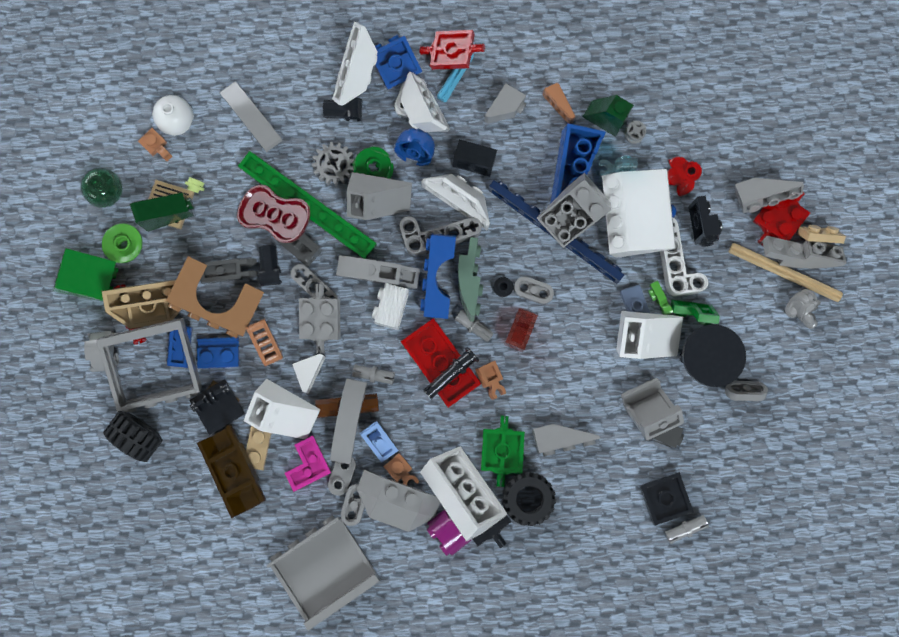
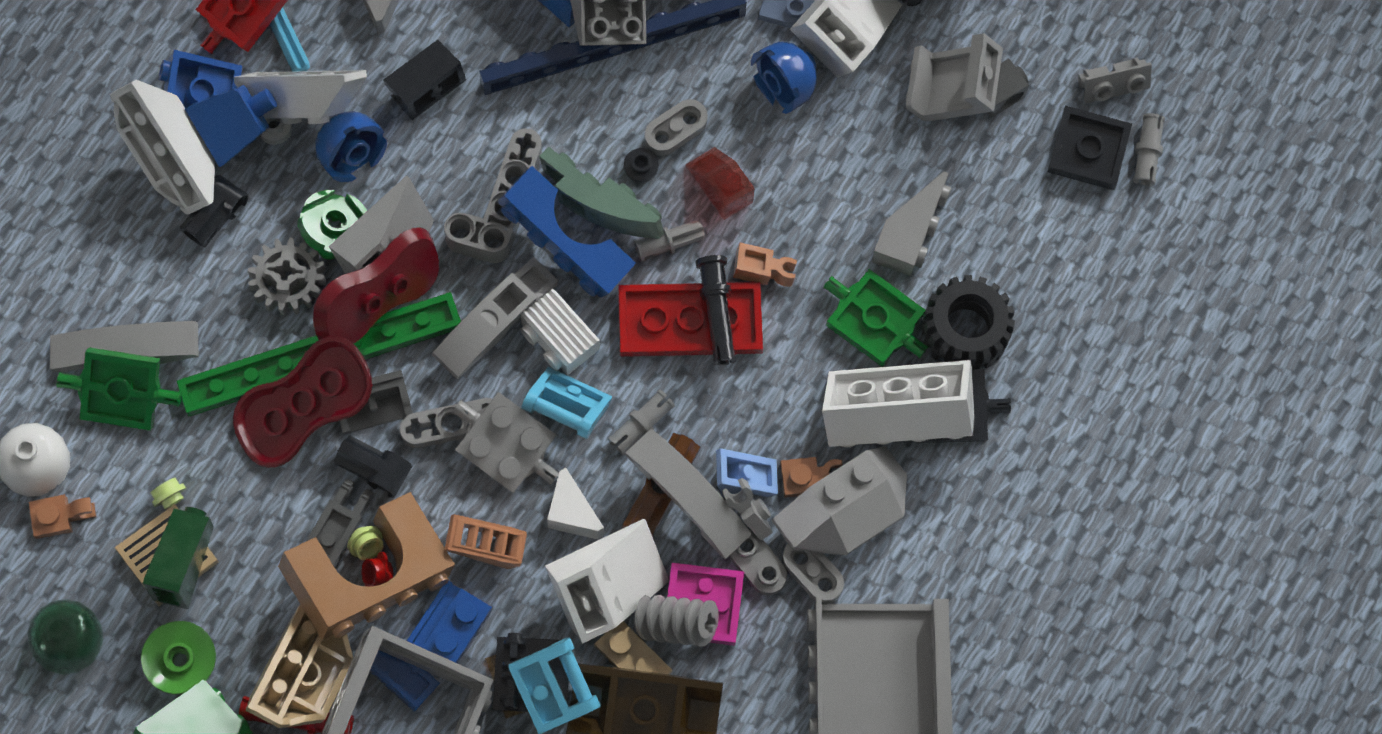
camera: 60 degrees left, 10 degrees down
(205, 419) = (542, 692): none -> medium azure plate
(219, 303) = (377, 570): none -> red plate
(227, 128) = (119, 388): none -> green plate
(230, 288) = (365, 542): none -> yellowish green plate
(283, 457) = (676, 620): none -> light grey piece
(332, 203) = (361, 297): none -> dark red plate
(361, 456) = (753, 512): none -> light grey plate
(363, 333) = (567, 401): none -> medium azure plate
(385, 84) = (231, 120): none -> blue torso
(447, 533) = (940, 464): magenta cylinder -> none
(459, 196) = (467, 135): white wedge -> none
(597, 325) = (785, 74): none -> blue cylinder
(719, 494) = (1126, 78): none -> light grey hinge

